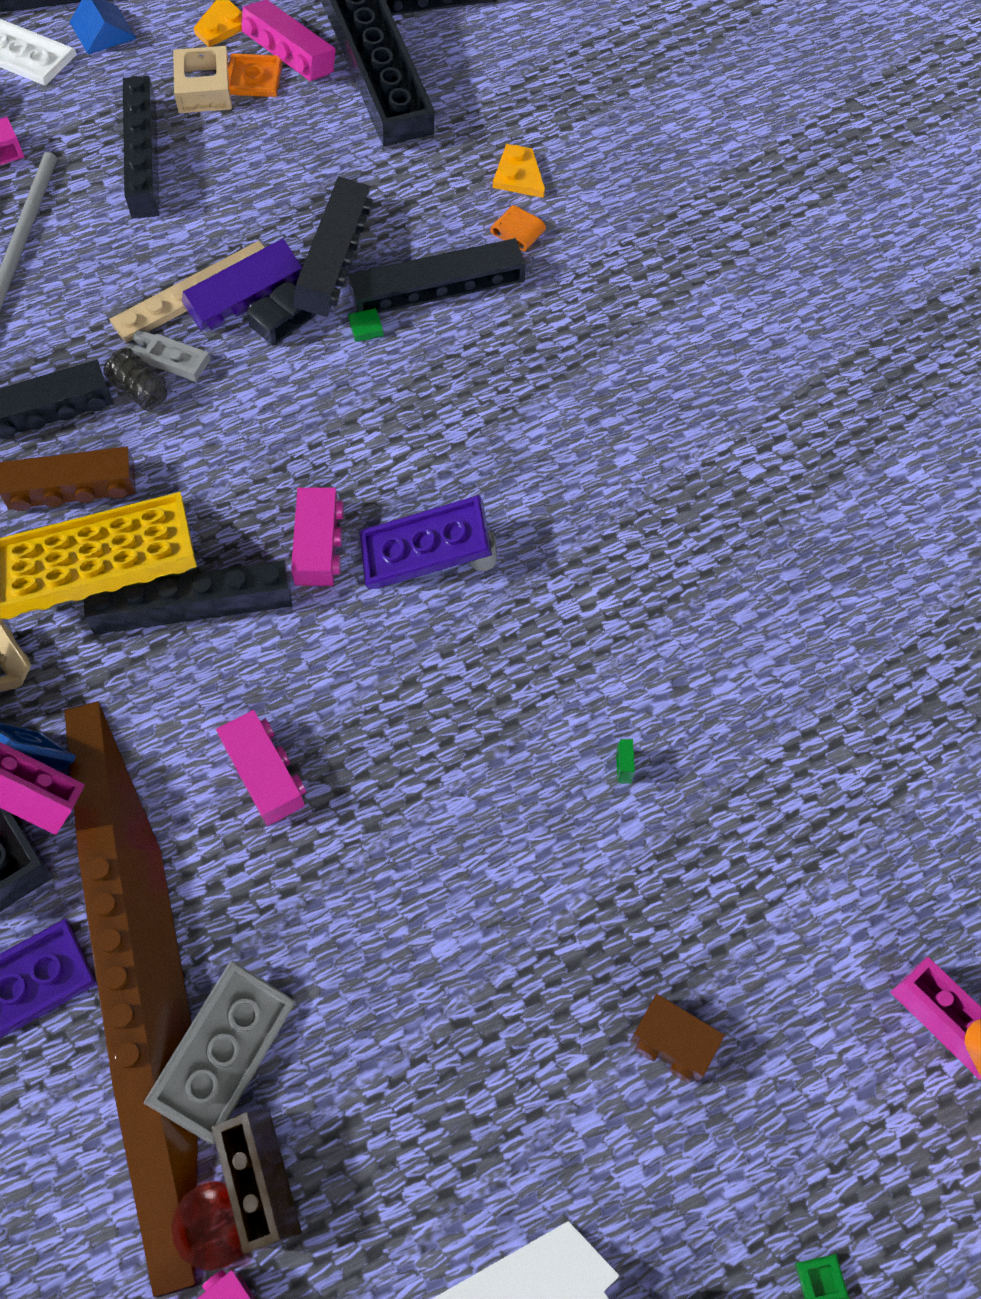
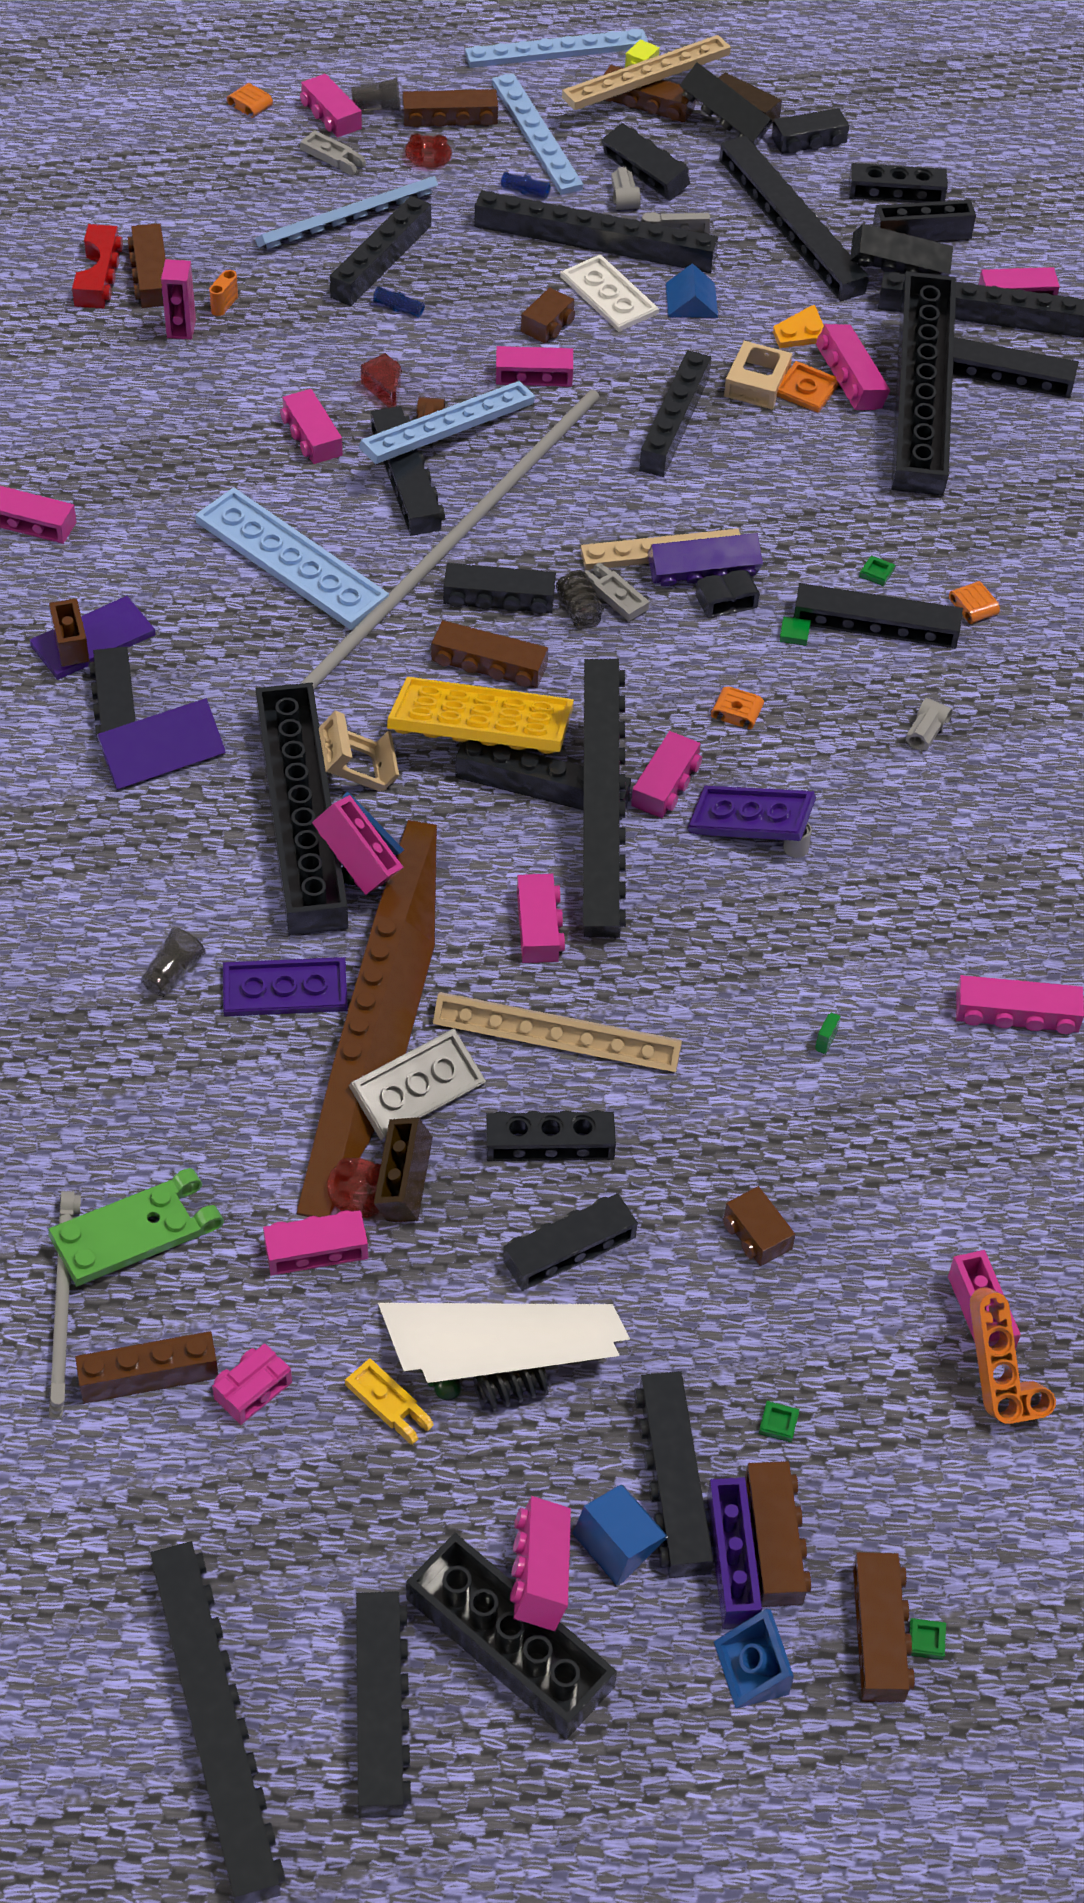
camera: 25 degrees right, 10 degrees down
(267, 601) = (602, 799): none -> black brick
(333, 247) = (798, 555): black brick -> none
(342, 900) = (557, 1032): none -> tan plate
(350, 429) = (737, 706): none -> orange piece
(354, 1079) = (563, 1145): none -> black brick
(412, 232) = (877, 570): none -> green tile
(486, 1171) = (569, 1241): none -> black brick
(519, 172) = (1002, 555): light orange wing -> none
(542, 368) = (928, 723): none -> light grey piece
(789, 636) = (1019, 1004): none -> dark pink brick

